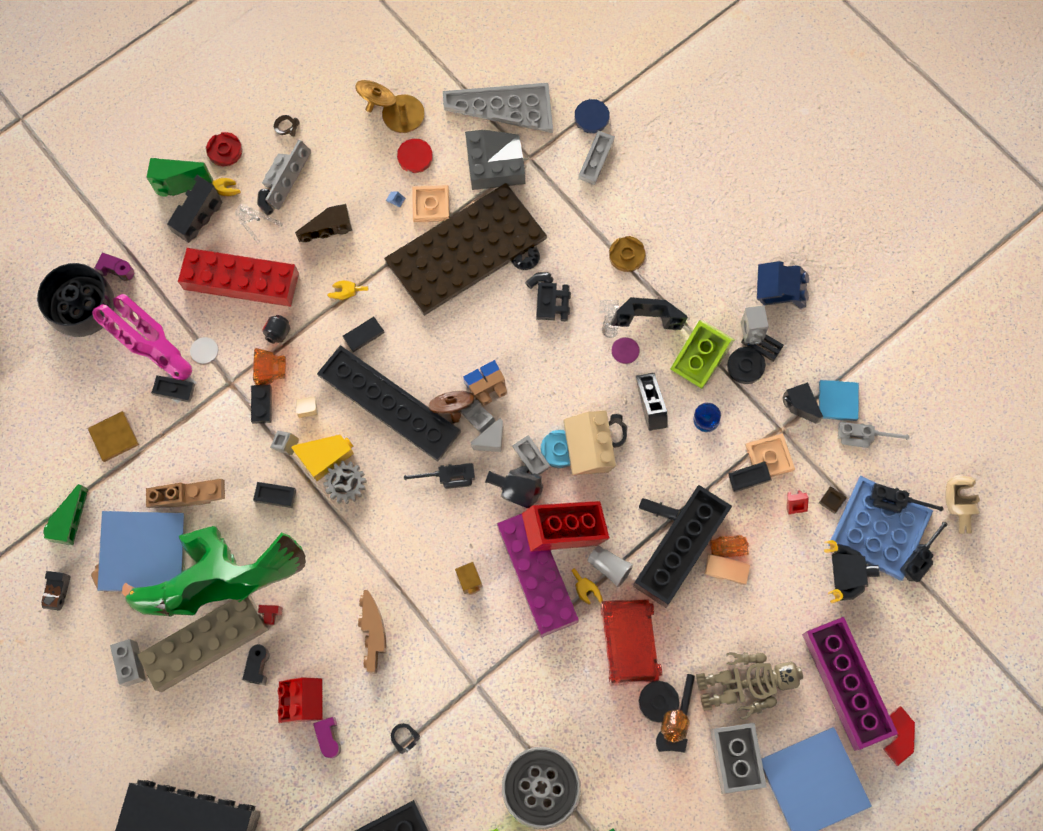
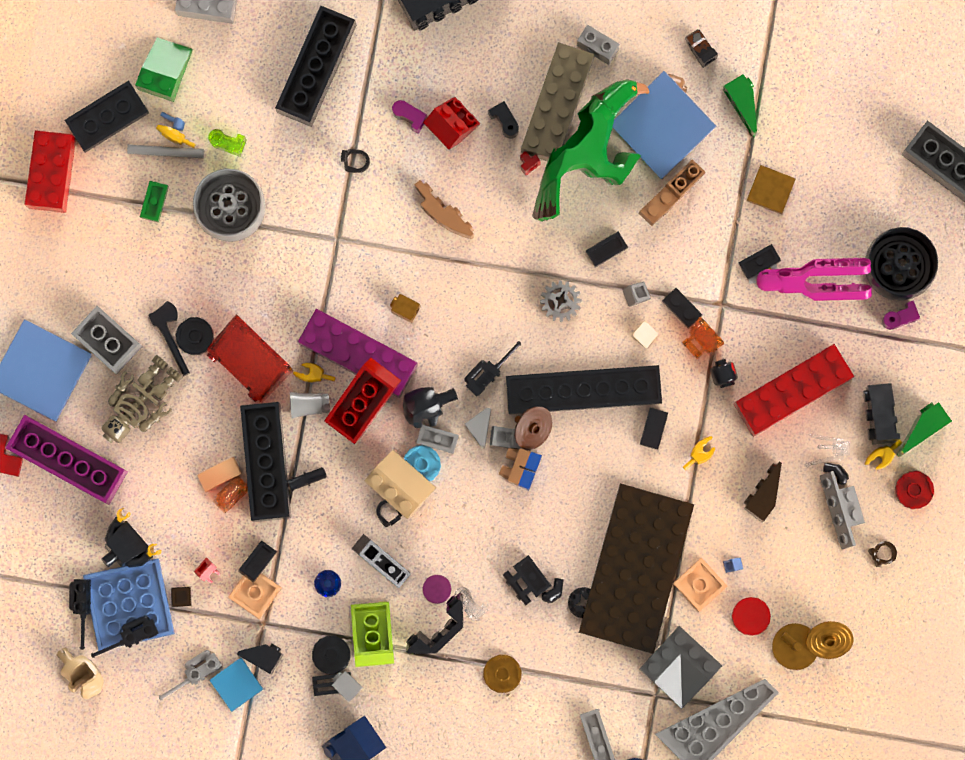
camera: 145 degrees right, 10 degrees up
(203, 350) = (768, 312): white sticker -> none
(323, 454) = (596, 307): yellow slope -> none
(675, 726) = (168, 324): clear orange head -> none

